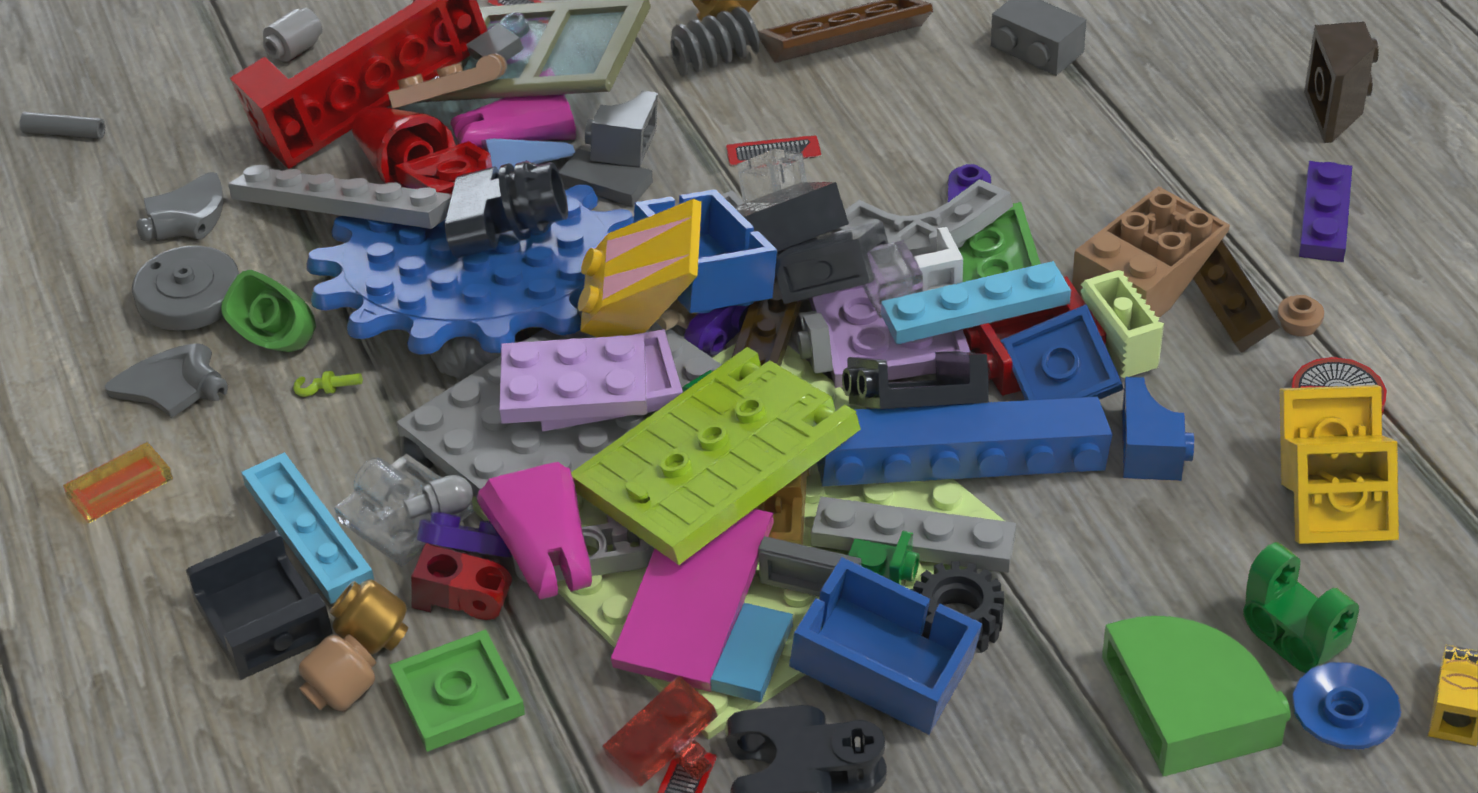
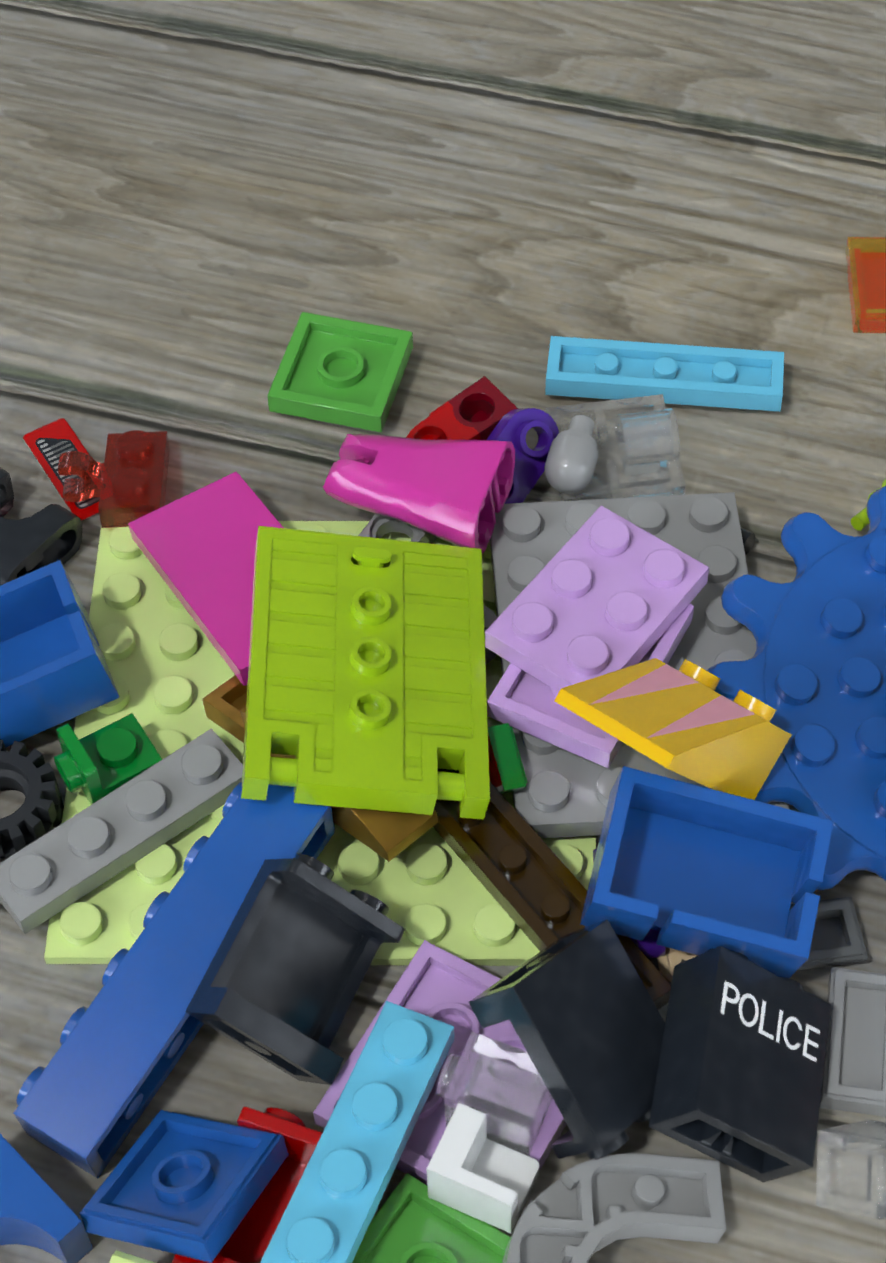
camera: 130 degrees right, 10 degrees up
(258, 605) = (589, 293): black panel -> none
(337, 673) = (444, 297): medium nougat head -> none
(370, 616) = (481, 342): pearl gold head -> none
(752, 652) = (131, 588): dark azure tile -> none
(797, 565) = (161, 680): dark grey tile -> none
(815, 341) = (485, 943): light grey plate -> none

